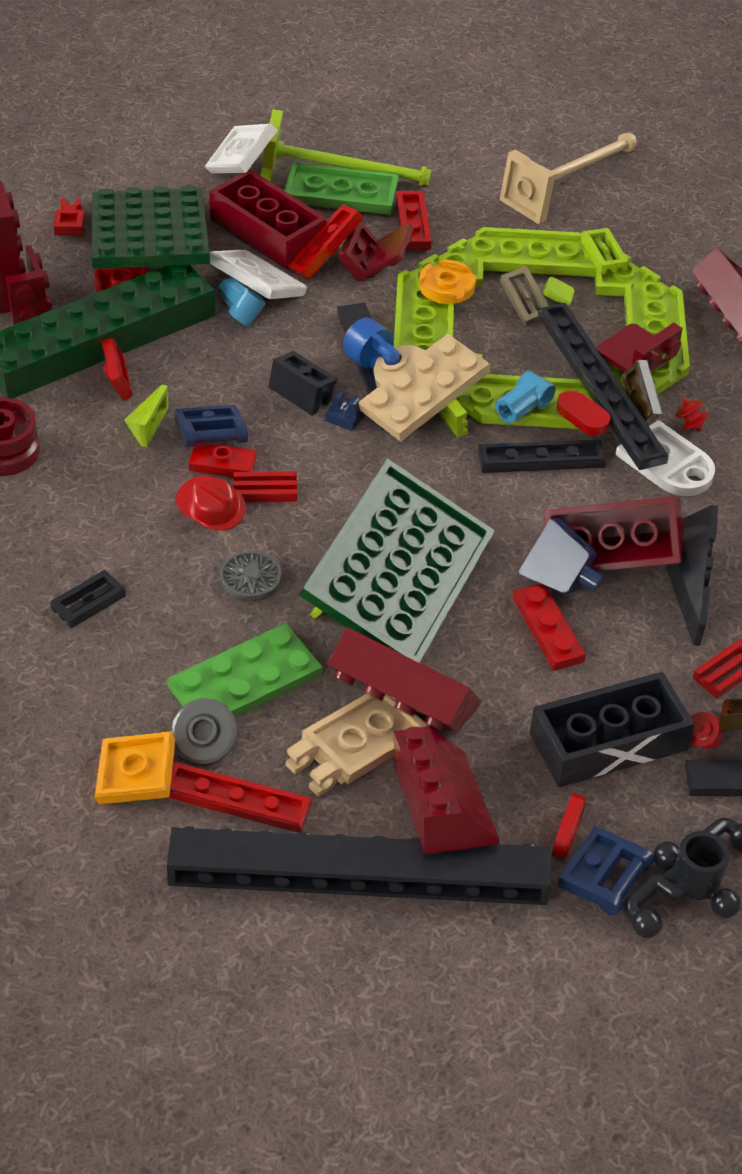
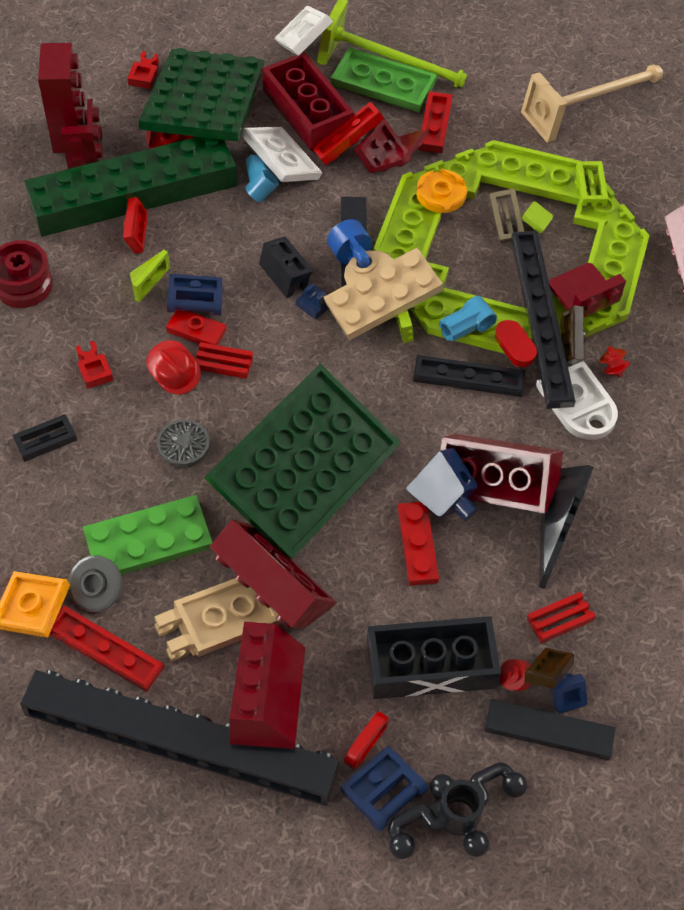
camera: 15 degrees right, 10 degrees up
(120, 519) = (93, 366): none -> red plate

